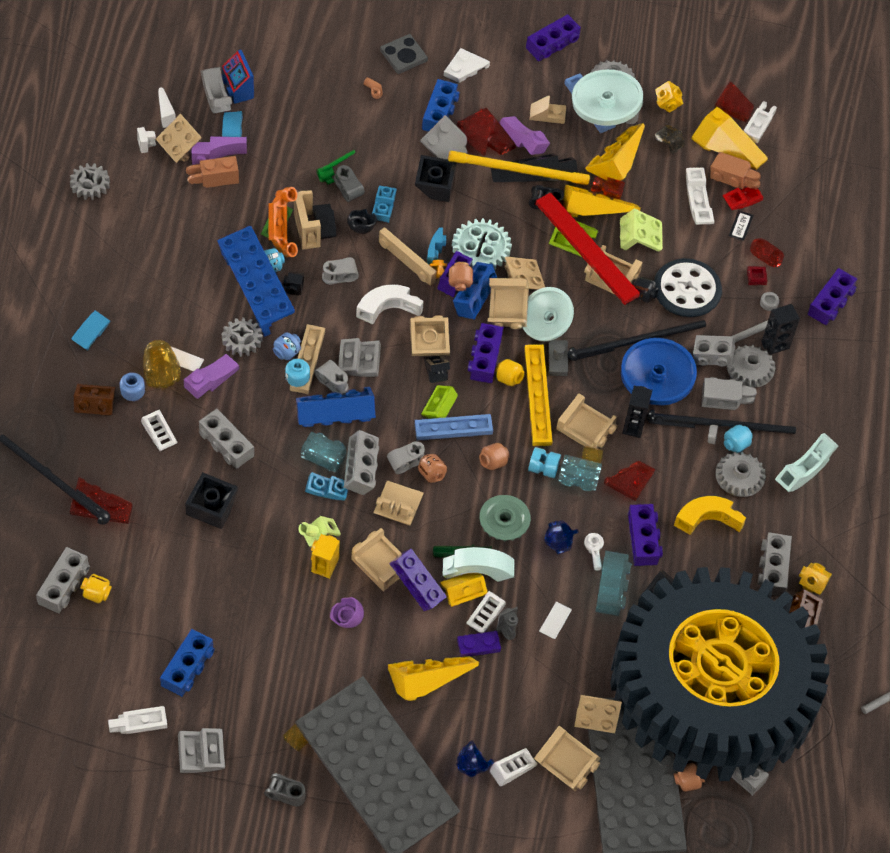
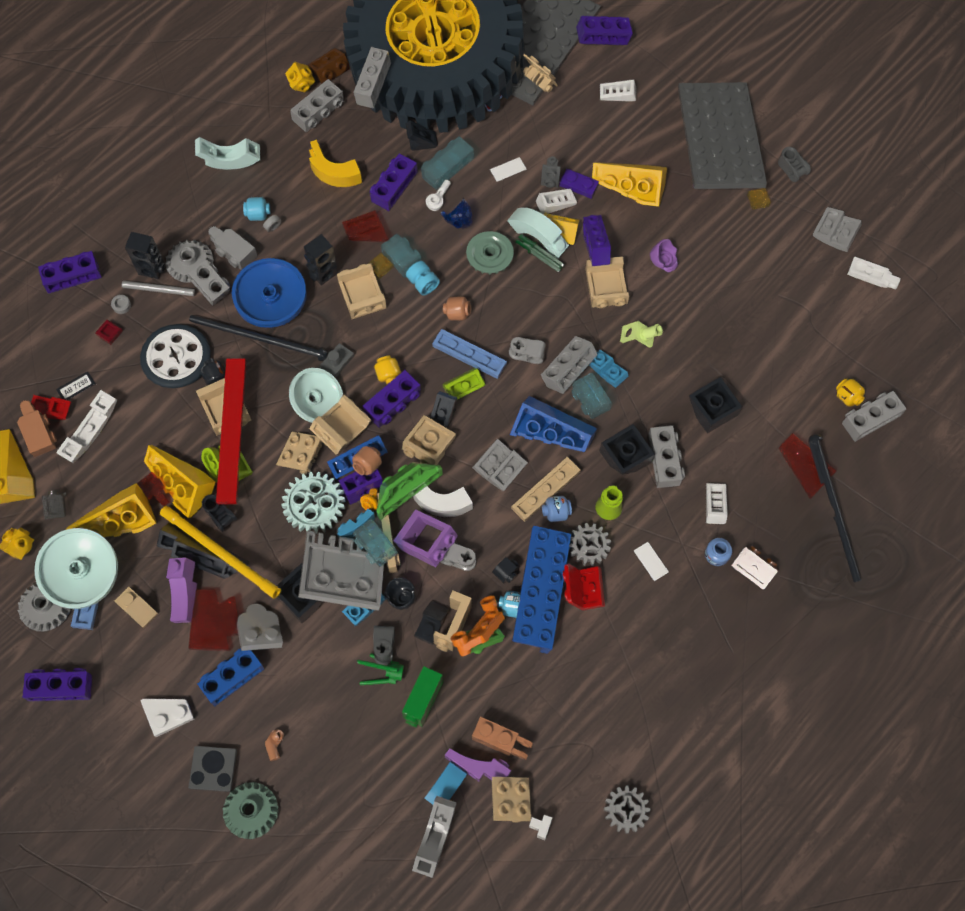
camera: 140 degrees left, 10 degrees up
(90, 330) = (720, 636): dark azure slope -> none
(160, 365) = (680, 559): clear yellow hair -> none
(166, 109) = (498, 850): white slope -> none
(187, 653) = (807, 300): blue brick -> none
(211, 376) = (641, 523): medium lavender slope -> none
(226, 300) = (584, 587): none -> red bracket
(238, 78) = (403, 838): blue slope -> none
(246, 374) = (610, 503): none -> lime plant
(260, 418) = (627, 451): none -> black slope
(290, 161) = (422, 697): none -> green brick
(297, 372) = (570, 467): medium azure head -> none
(325, 555) = (653, 303): yellow brick -> none
(332, 377) = (537, 459): light grey piece -> none
(357, 46) = (260, 820): none -> sand green gear
(389, 262) = (412, 530): none -> medium lavender window
(398, 503) = (559, 321): tan hinge -> none
(407, 231) = (374, 541): none -> clear light blue brick
(415, 199) = (339, 573): none -> light grey hinge
(418, 282) = (404, 485): none -> bright green wedge
(432, 468) = (513, 327): nougat head -> none
(471, 761) = (647, 104): clear blue helmet -> none
(538, 395) = (379, 339): yellow plate -> none
(567, 759) = (578, 67): tan panel -> none
(576, 806) = (604, 30): none -> dark purple brick
(640, 228) = (167, 428): yellowish green bracket -> none
(686, 421) = (251, 226): black bar -> none
(729, 564) = (372, 77): none -> light grey brick
(740, 483) = (280, 193): light grey gear -> none
(766, 251) = (80, 345): clear red plate -> none

